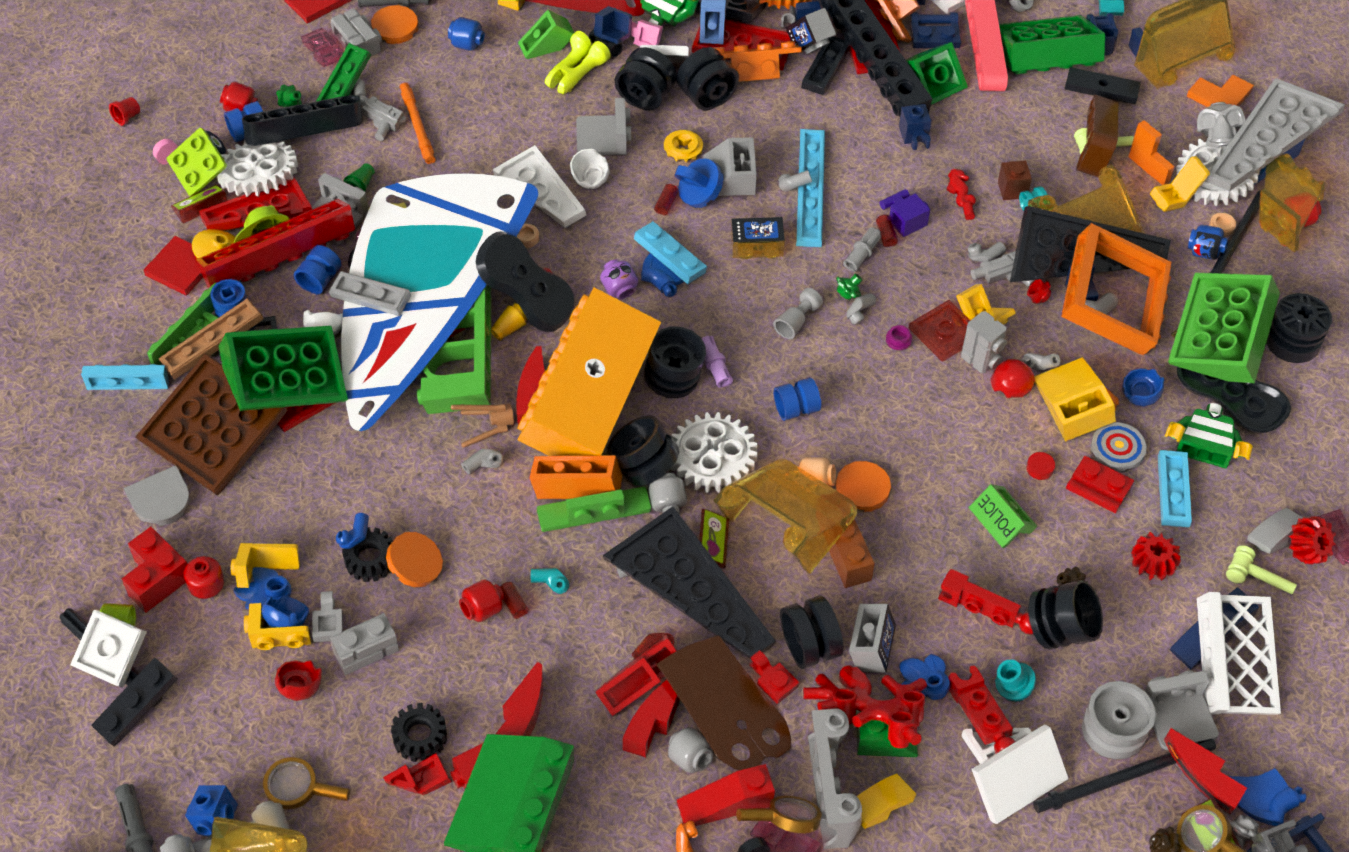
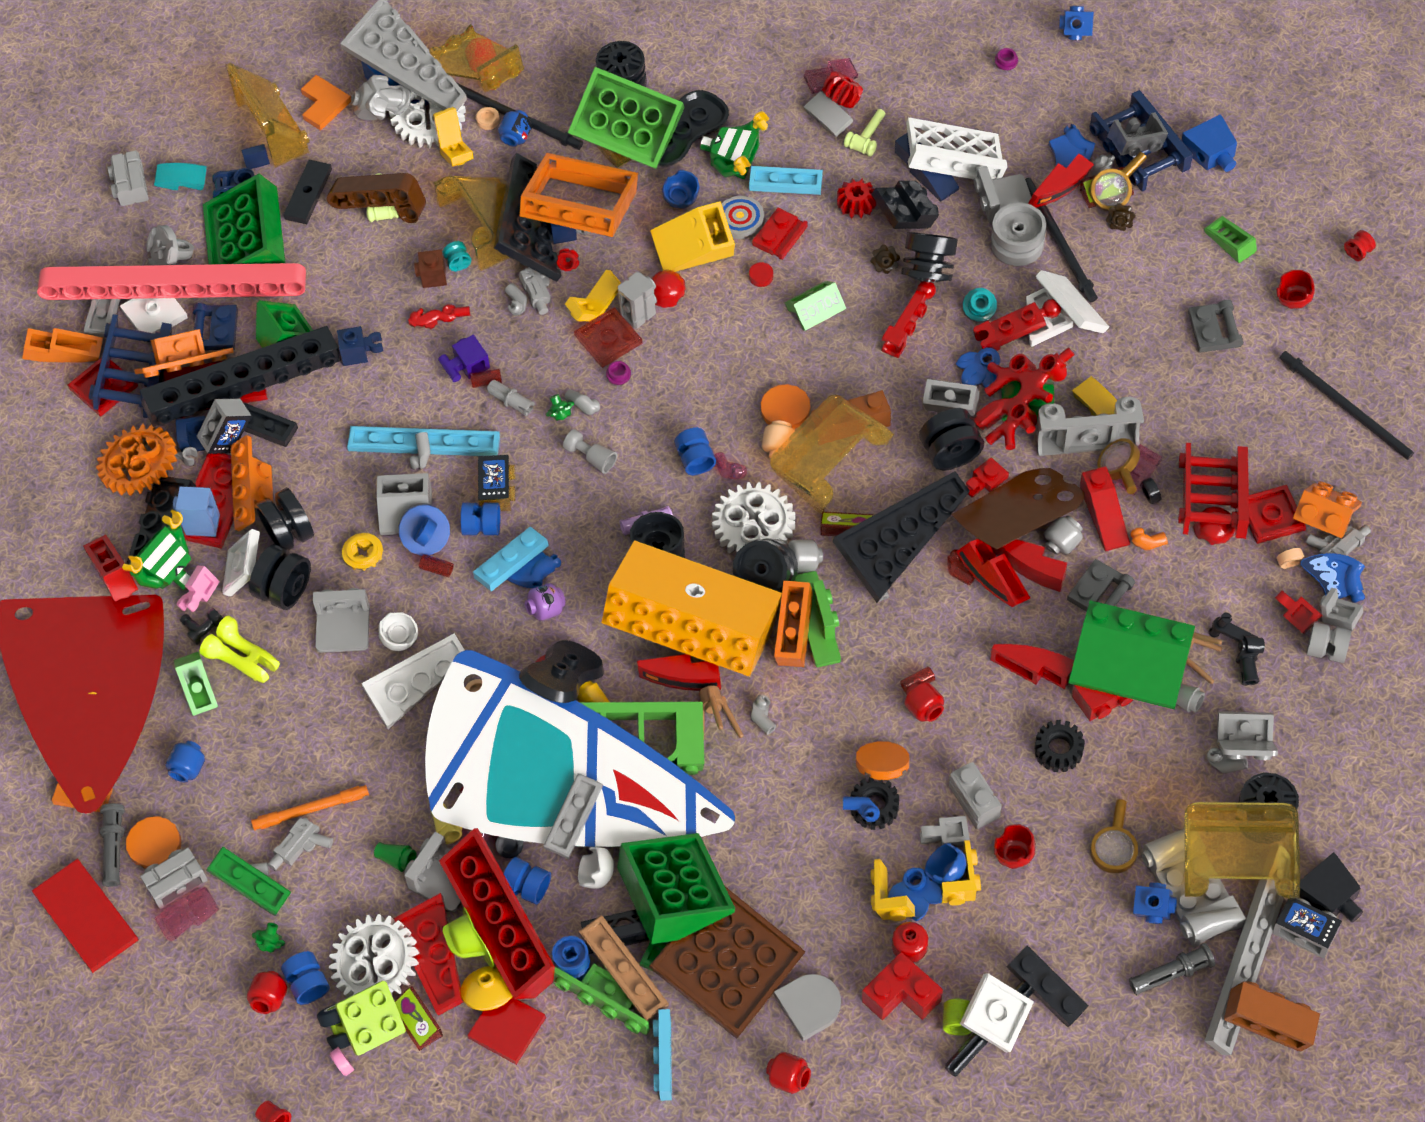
camera: 85 degrees left, 5 degrees up
(87, 473) = (788, 1072): none -> red head
(302, 120) = (312, 915): black beam -> none
(420, 778) = (1100, 744): red slope -> none
(552, 578) = (892, 650): teal arm -> none
(612, 25) = (195, 611): dark blue panel -> none
(625, 782) = (1096, 582): none -> dark grey plate
(714, 226) = (480, 519): none -> blue wheel
(781, 431) = (729, 469): none -> clear pink arm
(1041, 362) = (650, 261): light grey arm -> none
(1145, 153) = (408, 160): orange tile -> none
(1147, 602) = (906, 205): none -> black plate

